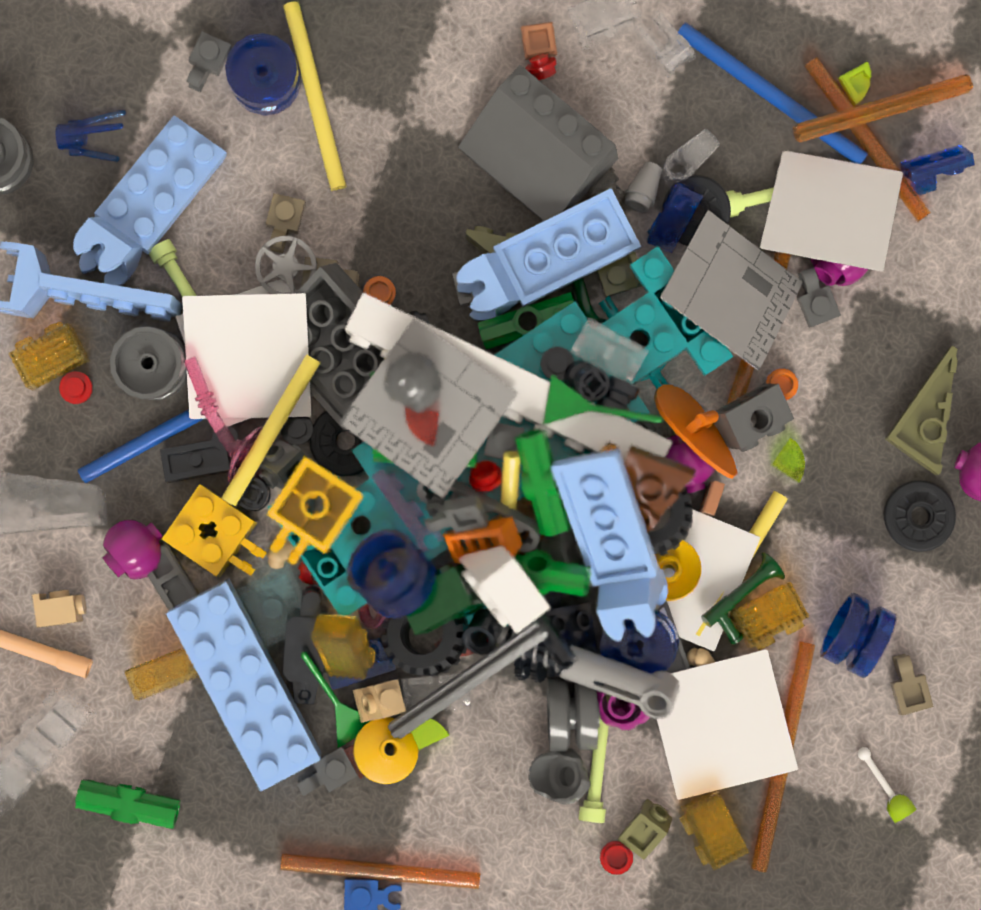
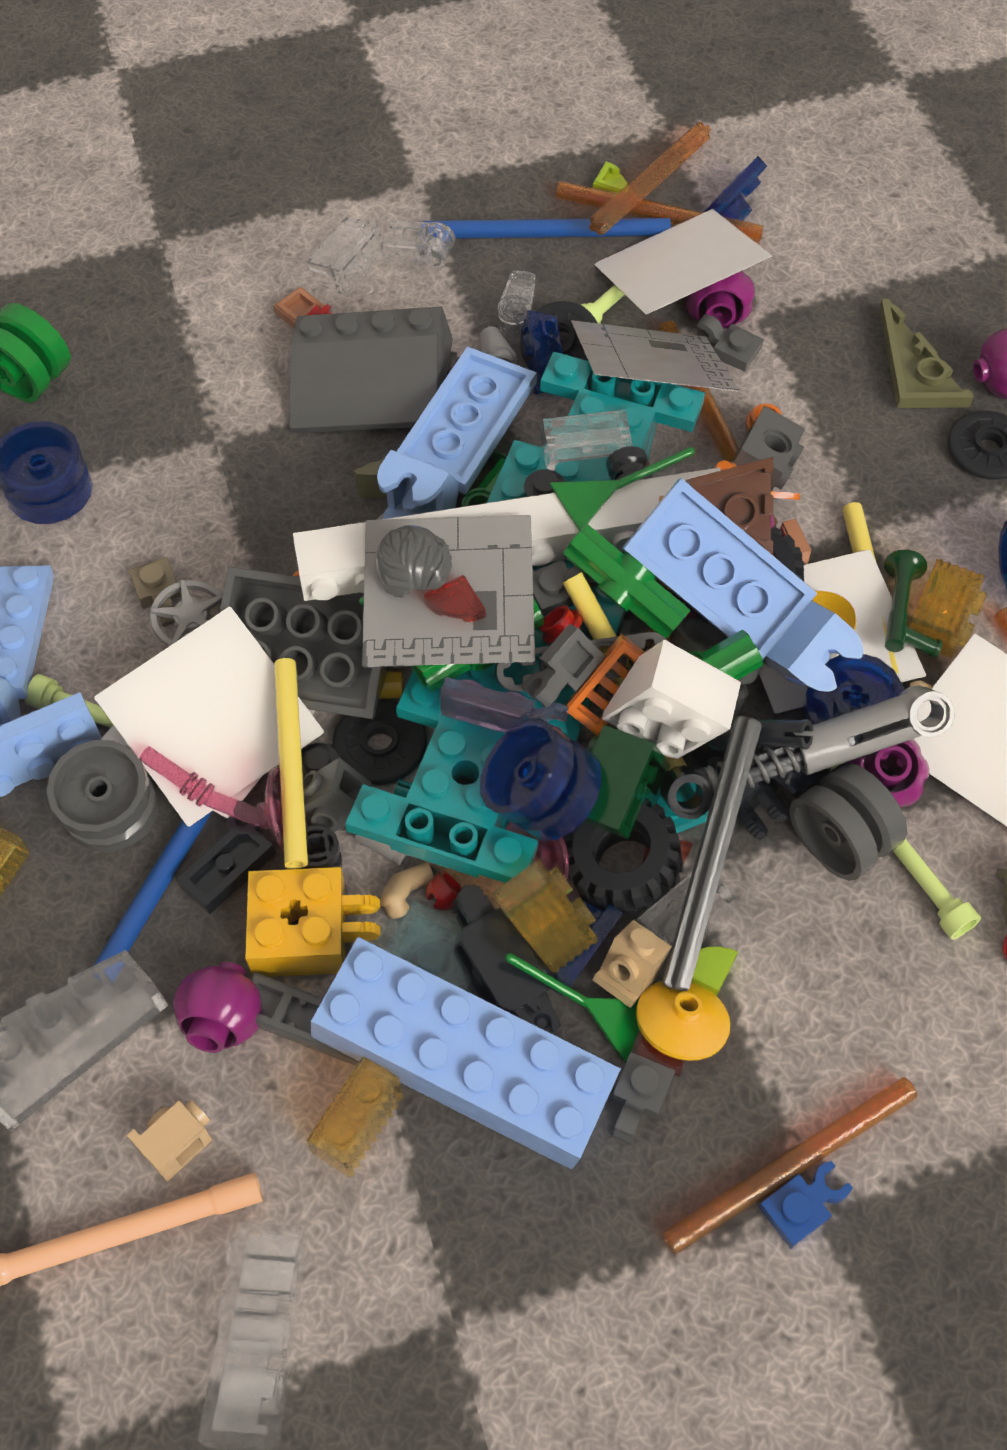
camera: 30 degrees left, 25 degrees down
(76, 387) = (30, 886): red plate -> none
(127, 804) = (425, 1313): green piece -> none
(293, 512) = (400, 767): yellow hinge -> none
(314, 96) = (127, 481): light yellow piece -> none
(559, 776) = (894, 899): dark grey hair -> none
(586, 380) = (590, 465): black wheel -> none
(618, 276) = (530, 425): olive bracket -> none
(790, 460) = (833, 477): clear neon green tile -> none

